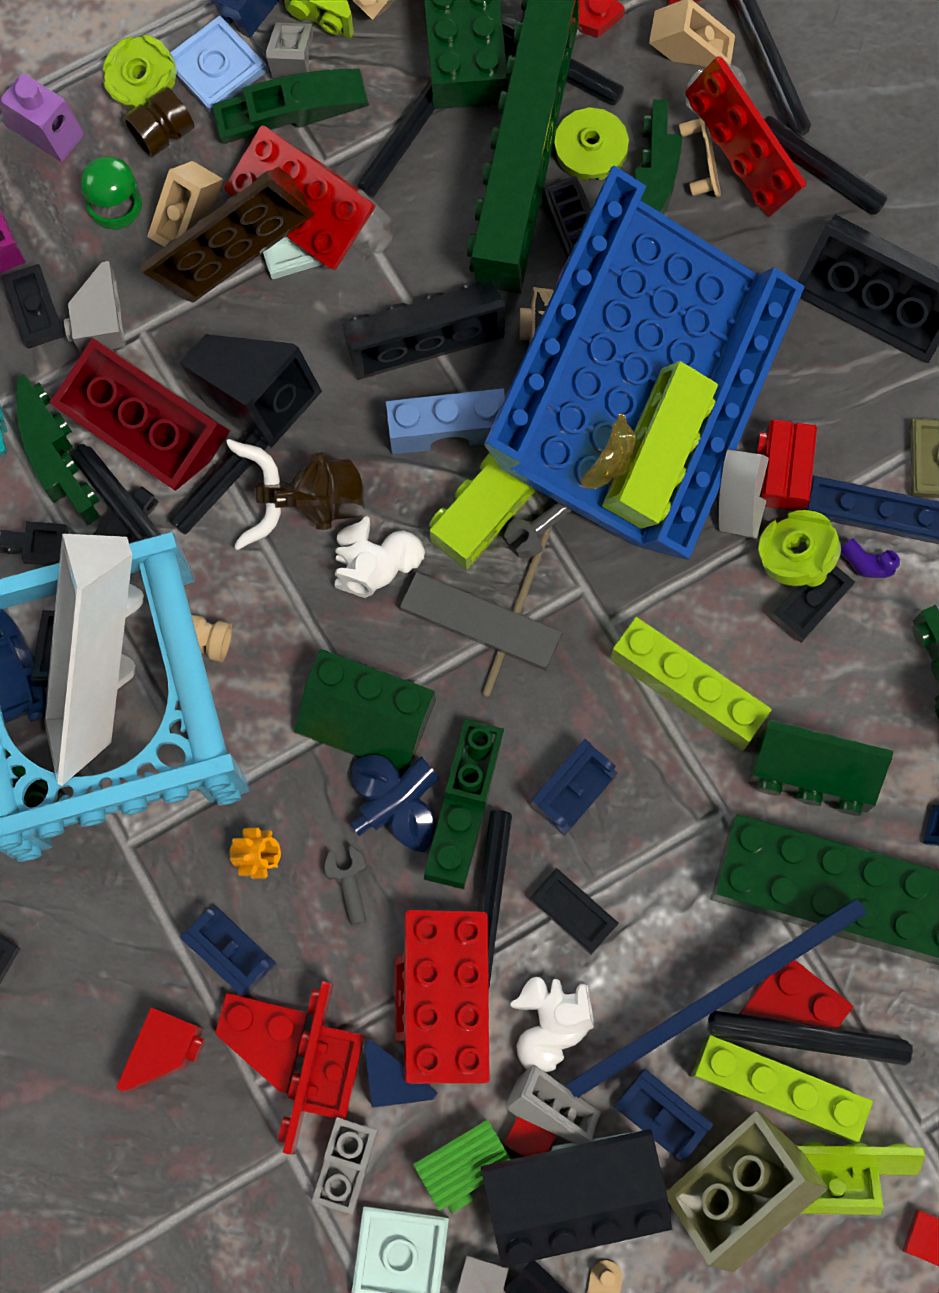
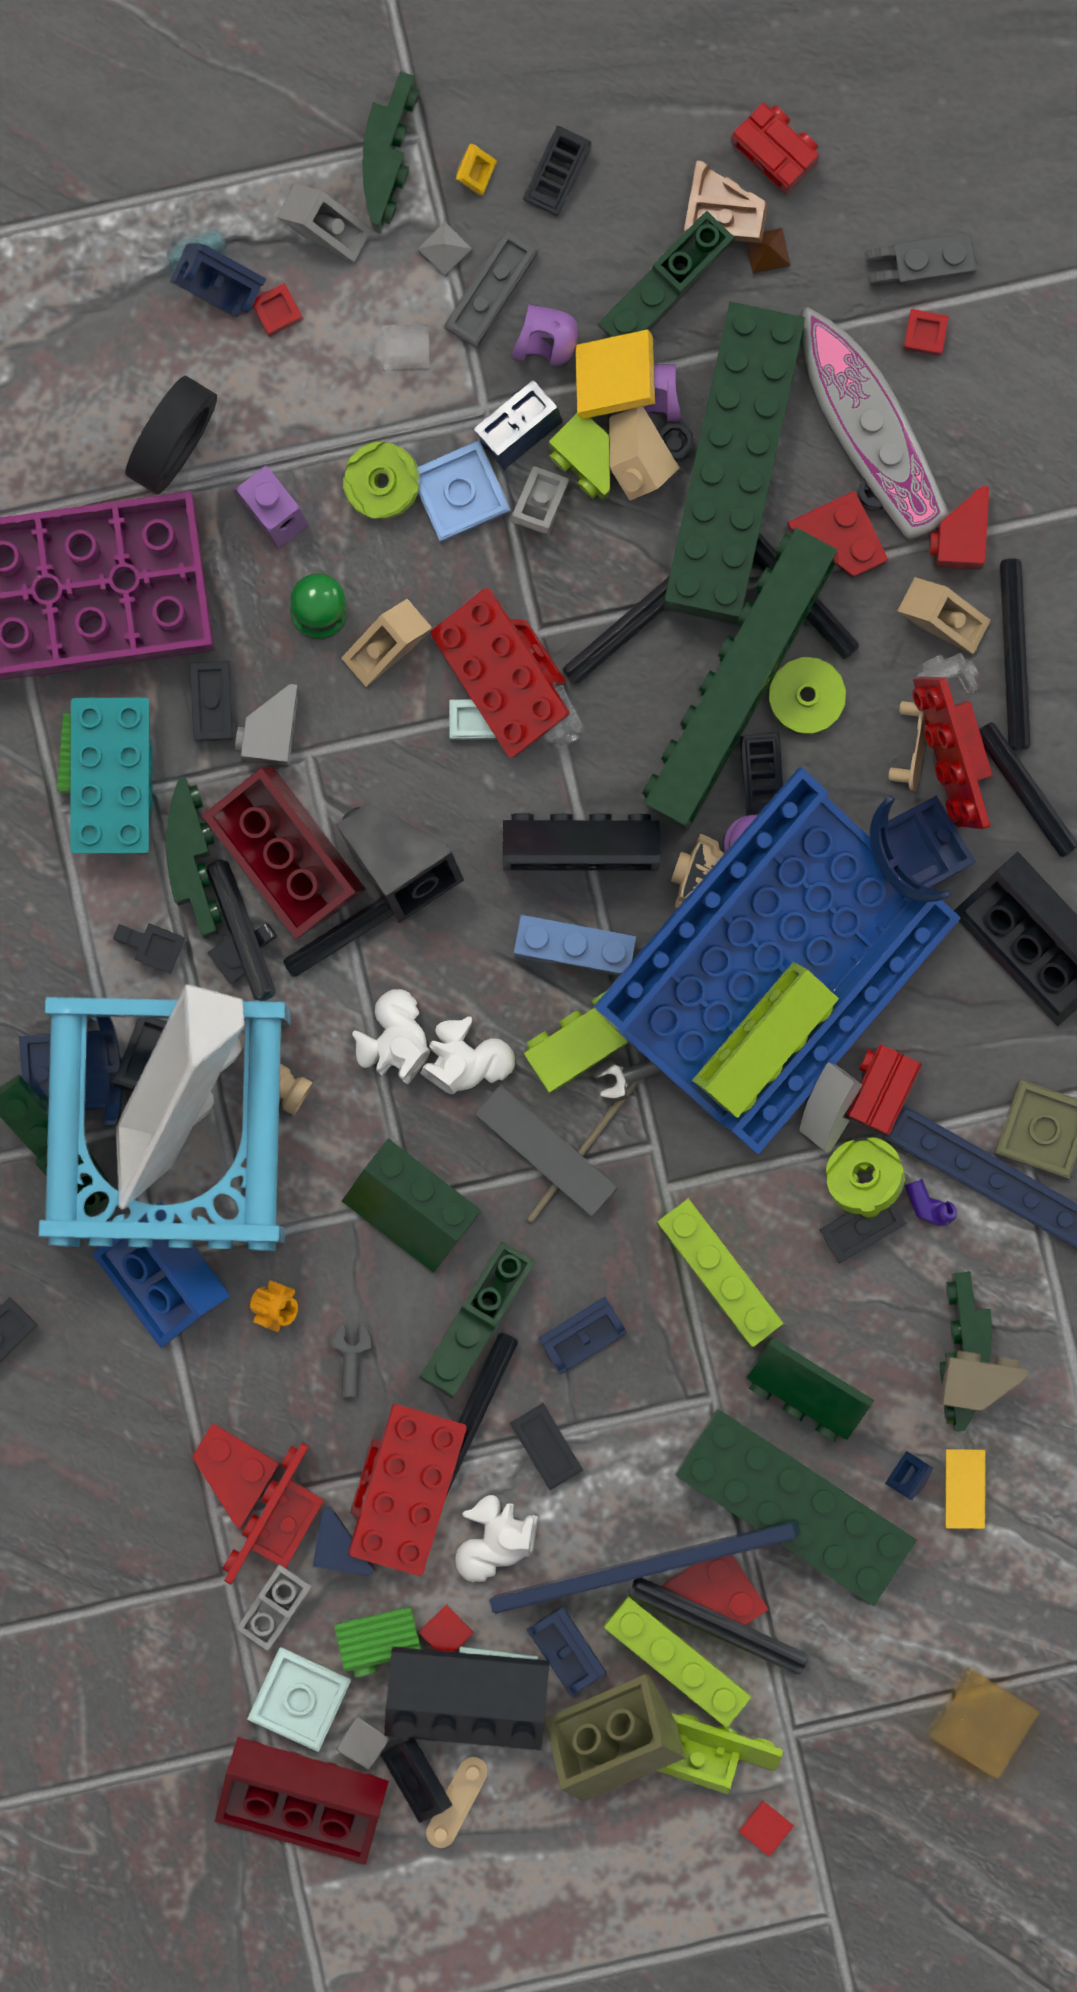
camera: 15 degrees right, 10 degrees up
(134, 864) = (162, 1284): none -> blue slope
(158, 122) = (385, 545): dark brown wheel -> none
(161, 1050) = (141, 1456): red slope -> none
(228, 951) = (225, 1386): dark blue hinge -> none
(230, 236) = (419, 698): dark brown slope -> none
(289, 100) = (521, 565): dark green slope -> none
(306, 562) = (401, 1043): none -> white animal
(319, 490) = (427, 981): dark brown helmet -> none
(395, 799) = (415, 1294): dark blue plant -> none
(528, 1103) = (454, 1612): light grey slope -> none
(613, 458) = (717, 1042): clear yellow hat -> none
(660, 159) = (849, 768): dark green slope -> none
(740, 233) = (918, 849): none -> dark blue piece

